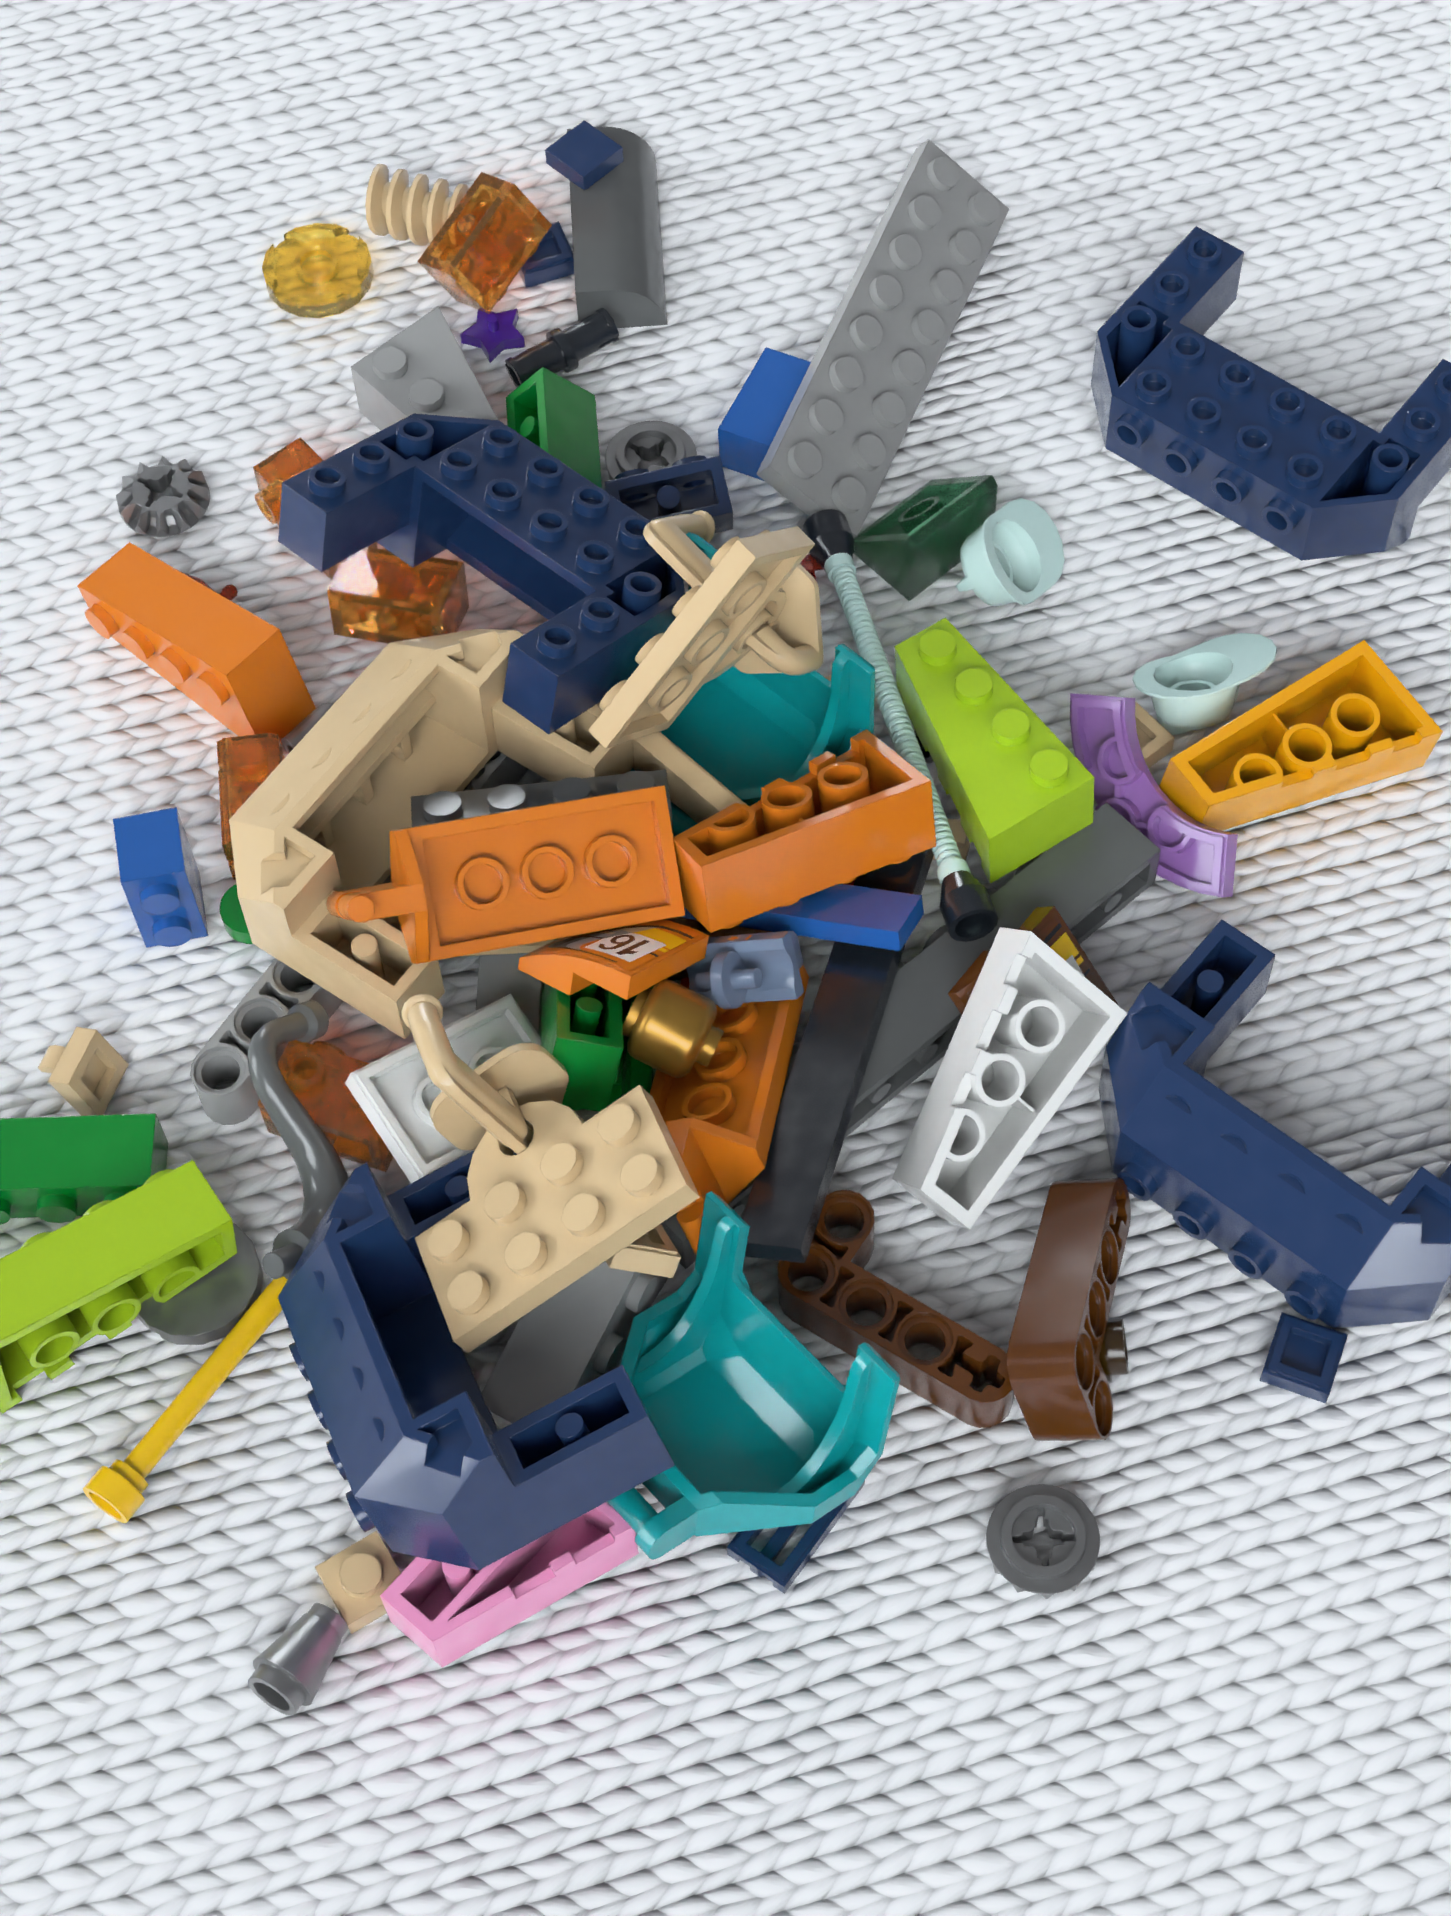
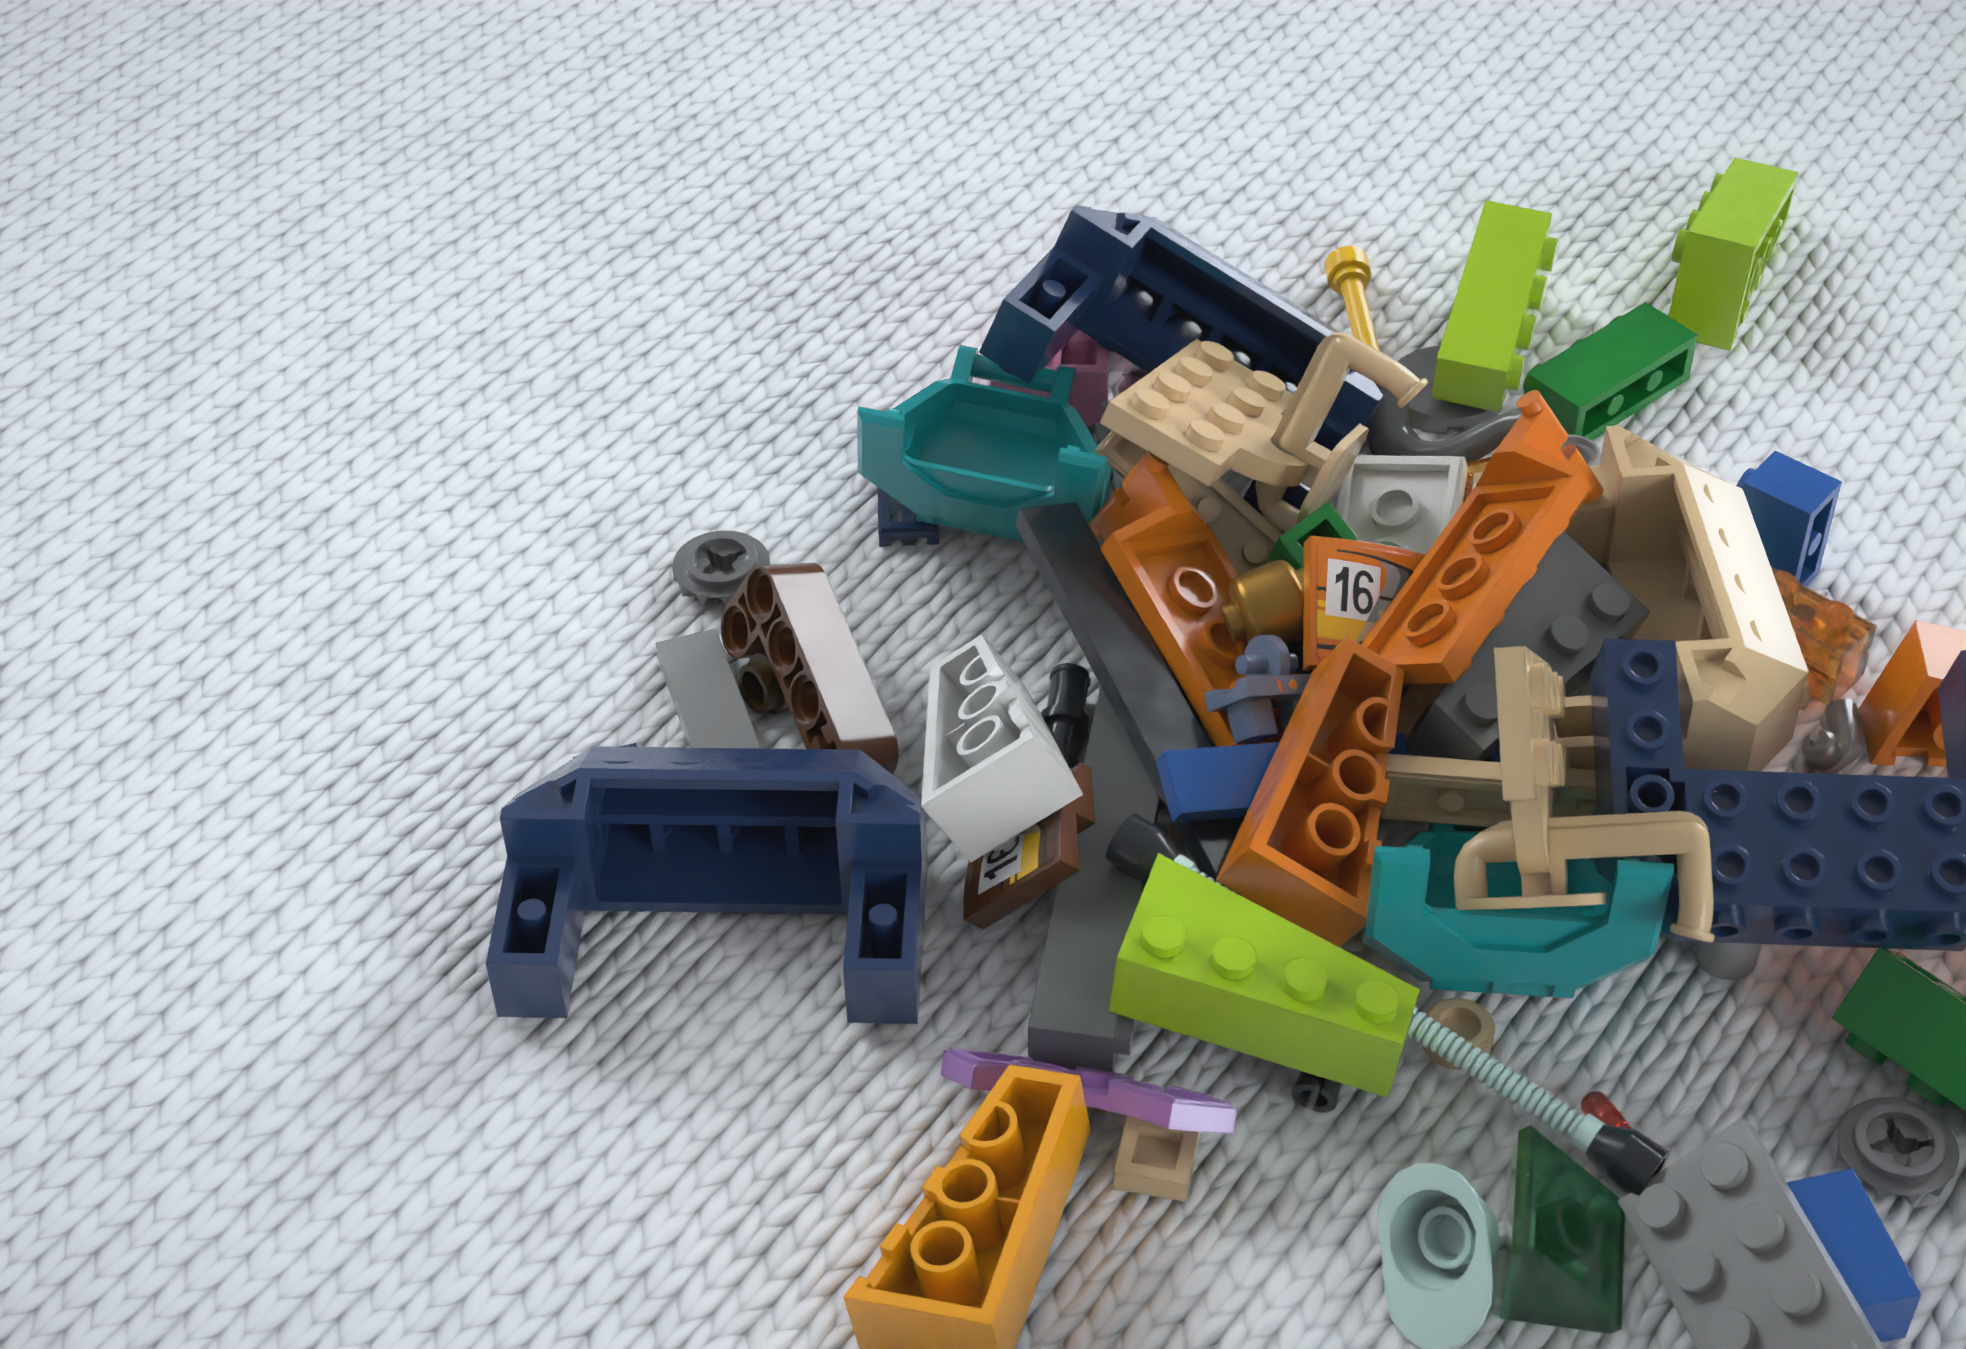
camera: 140 degrees right, 15 degrees down
(85, 1071) = (1671, 422): tan tile -> none
(681, 489) = (1805, 1072): dark blue brick -> none
(883, 1137) = (1066, 709): none -> black pin
(903, 1322) = (953, 606): reddish brown beam -> none
(1165, 1379) = (705, 692): none -> light grey tile
(1203, 681) = (1138, 1234): light aqua piece -> none

